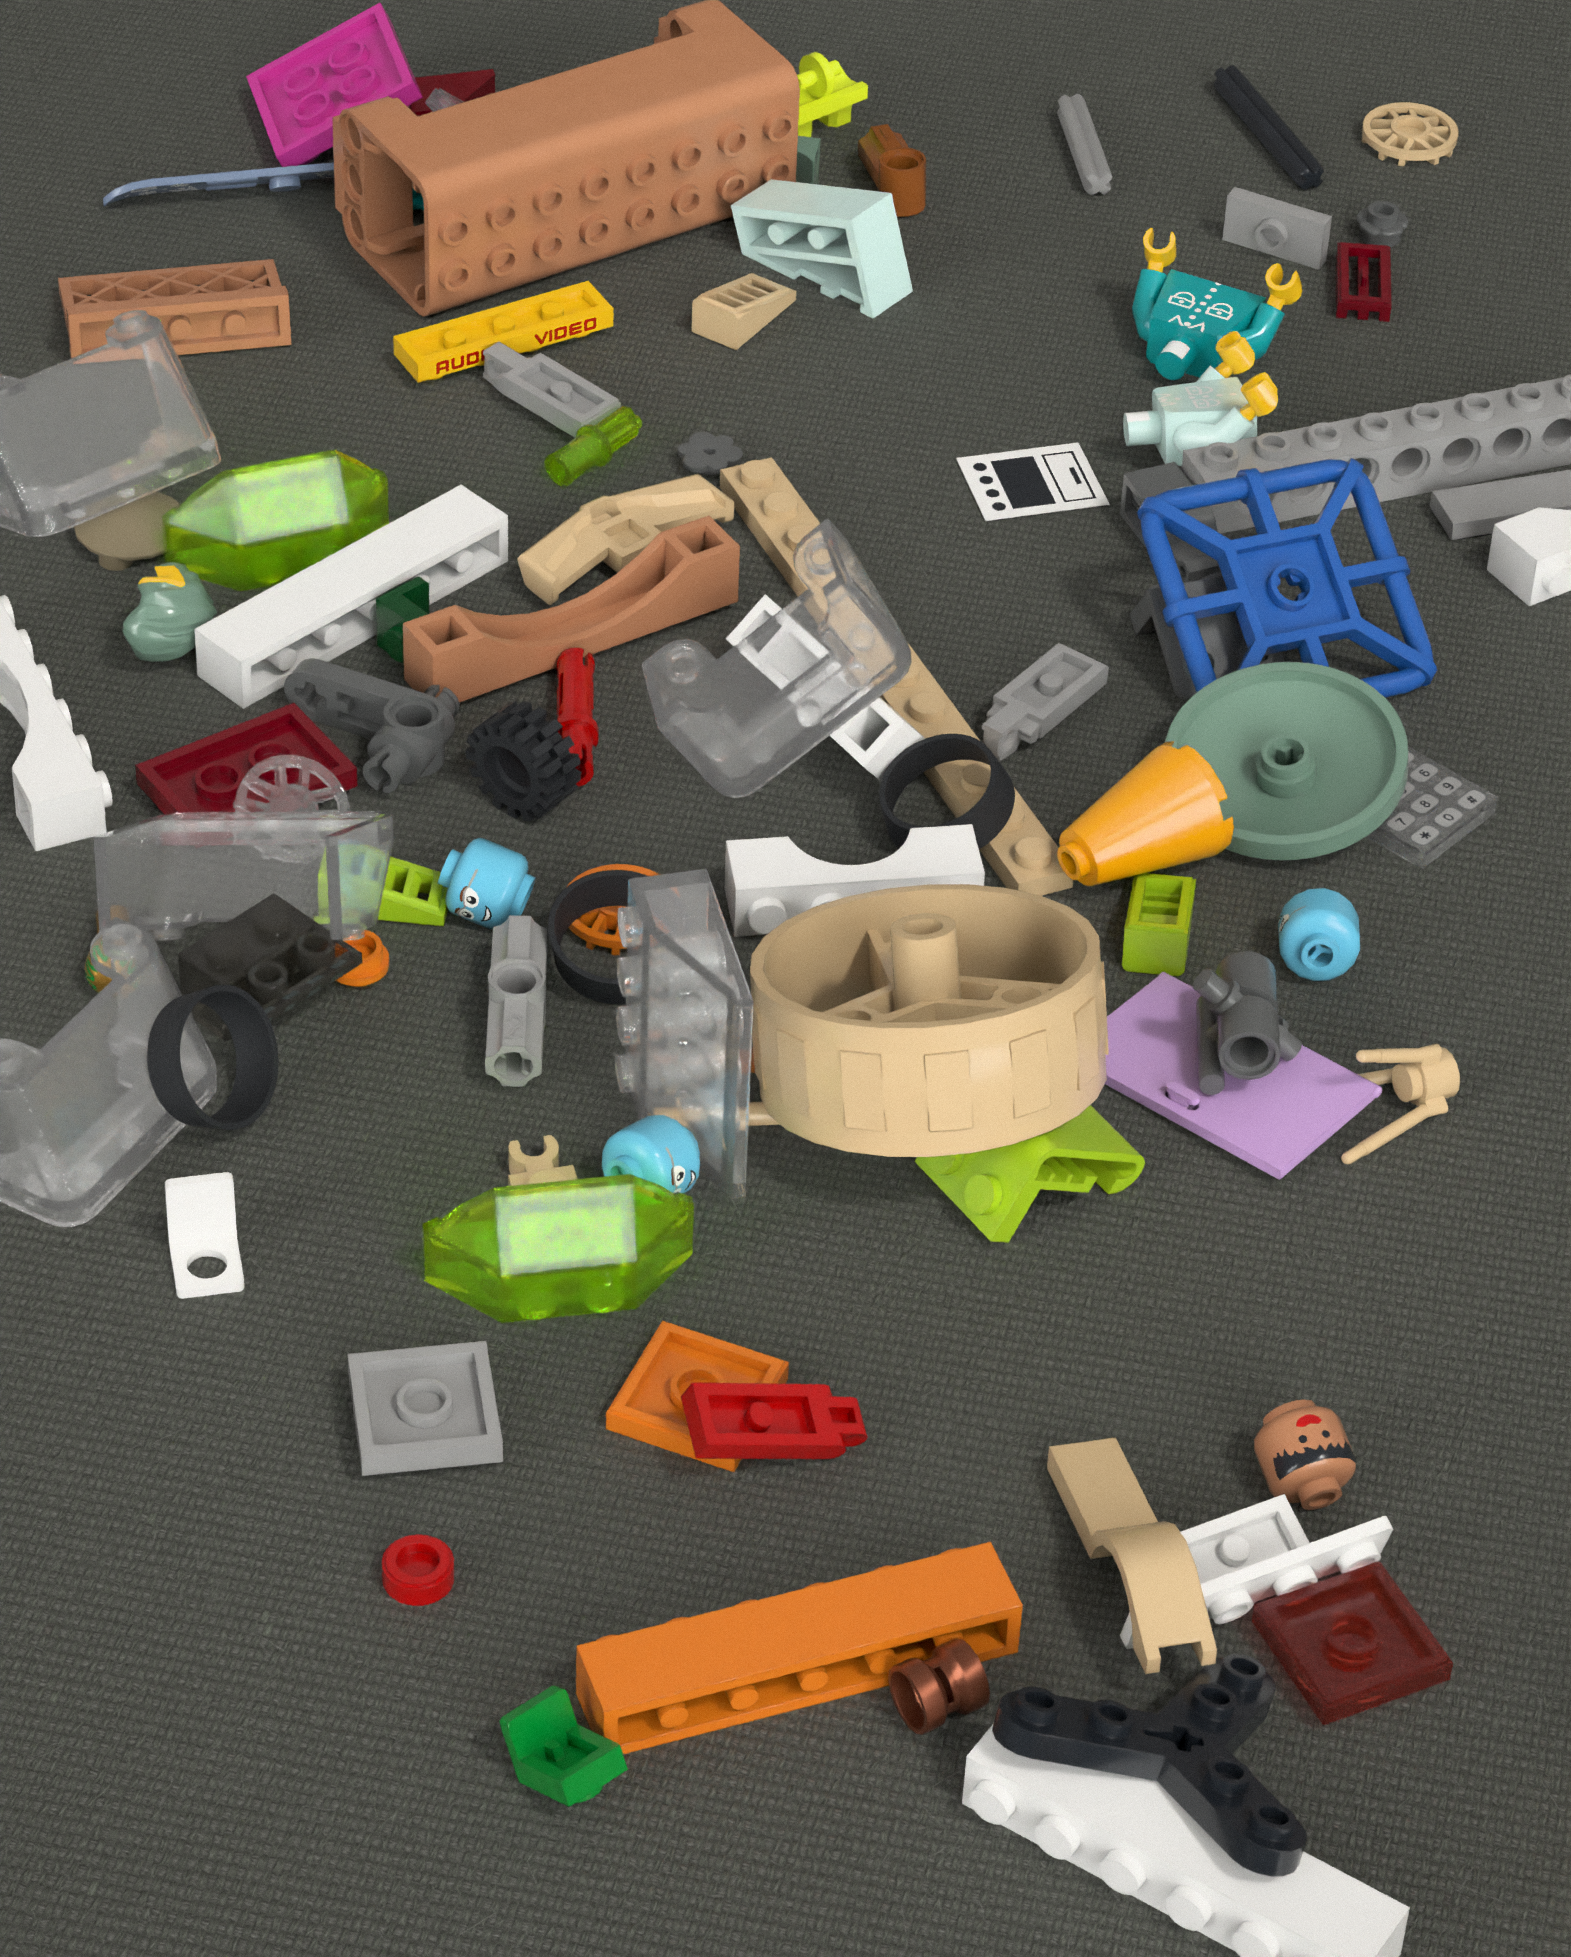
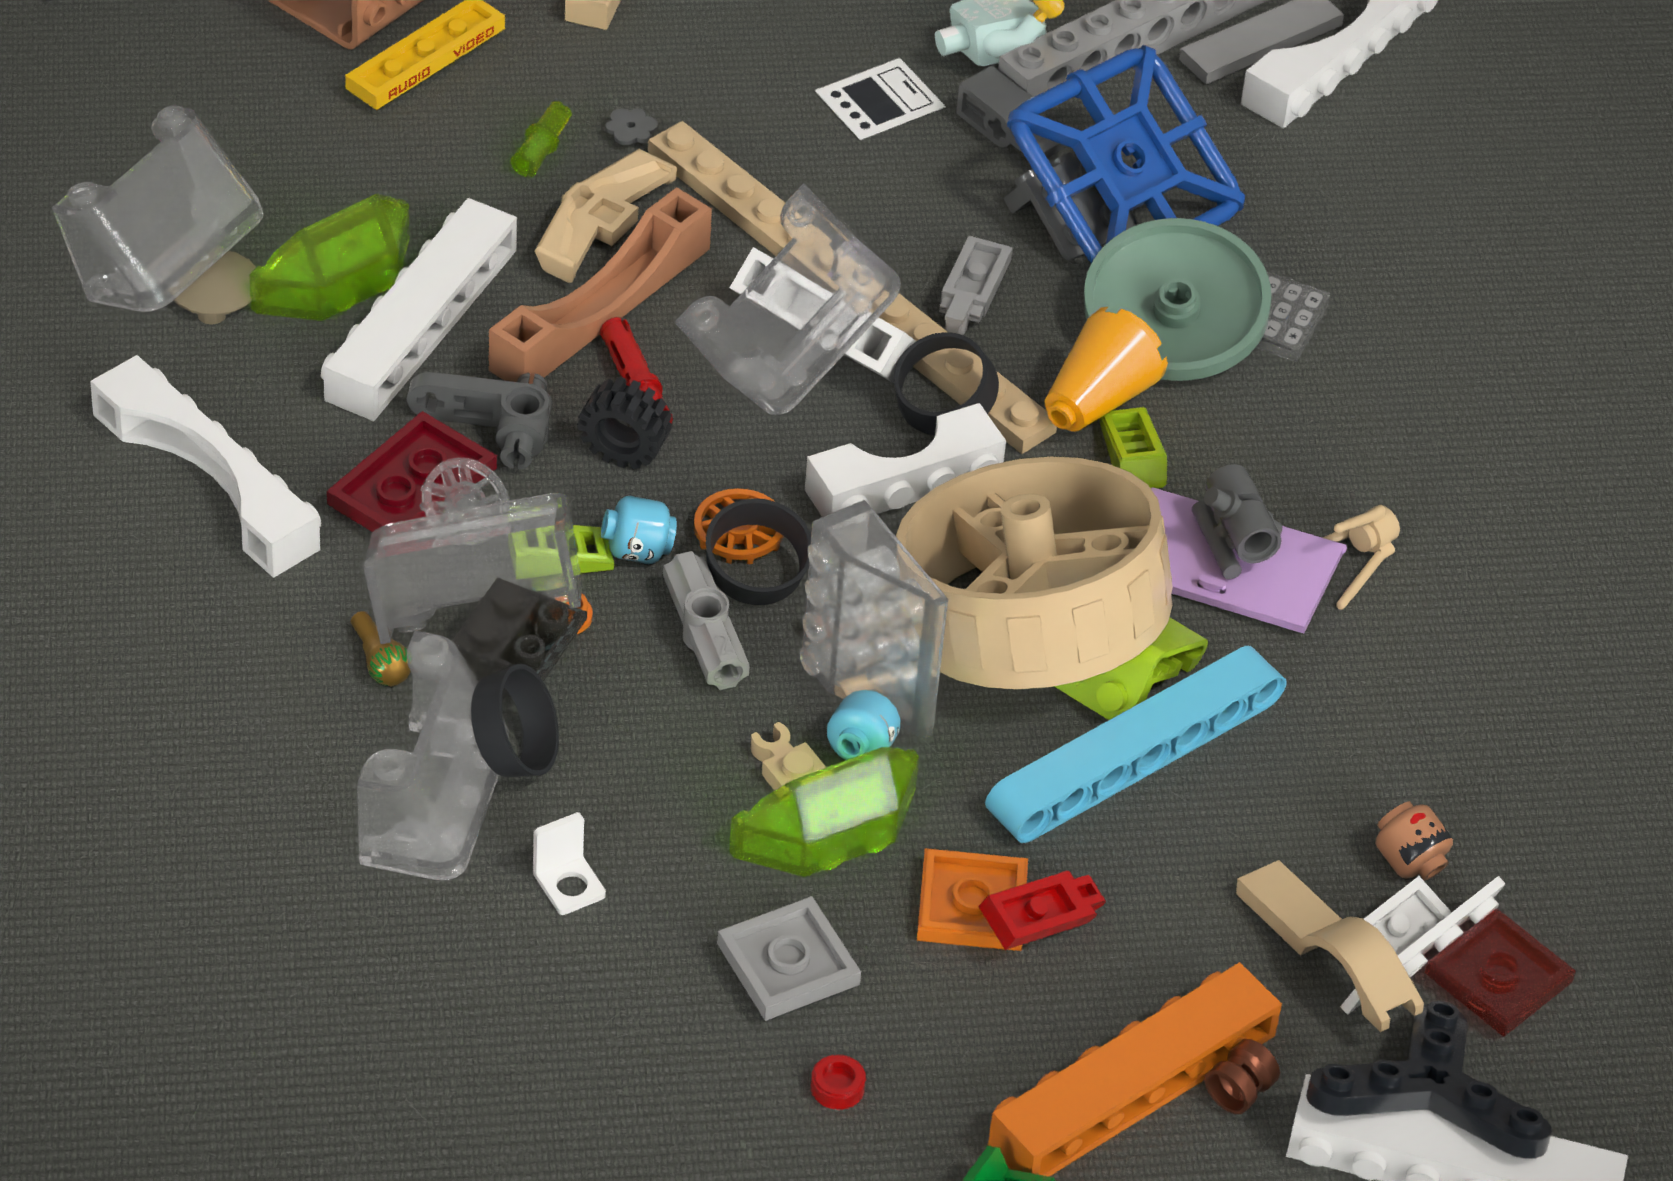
camera: 20 degrees left, 5 degrees up
(168, 614) = (298, 359): sand green hair -> none
(215, 317) = (110, 116): nougat fence -> none
(396, 608) = (471, 323): dark green bracket -> none
(547, 388) = (485, 97): light grey hinge -> none
(992, 1258) = (1135, 744): none -> medium azure beam
(1319, 934) = (1255, 434): medium azure head -> none

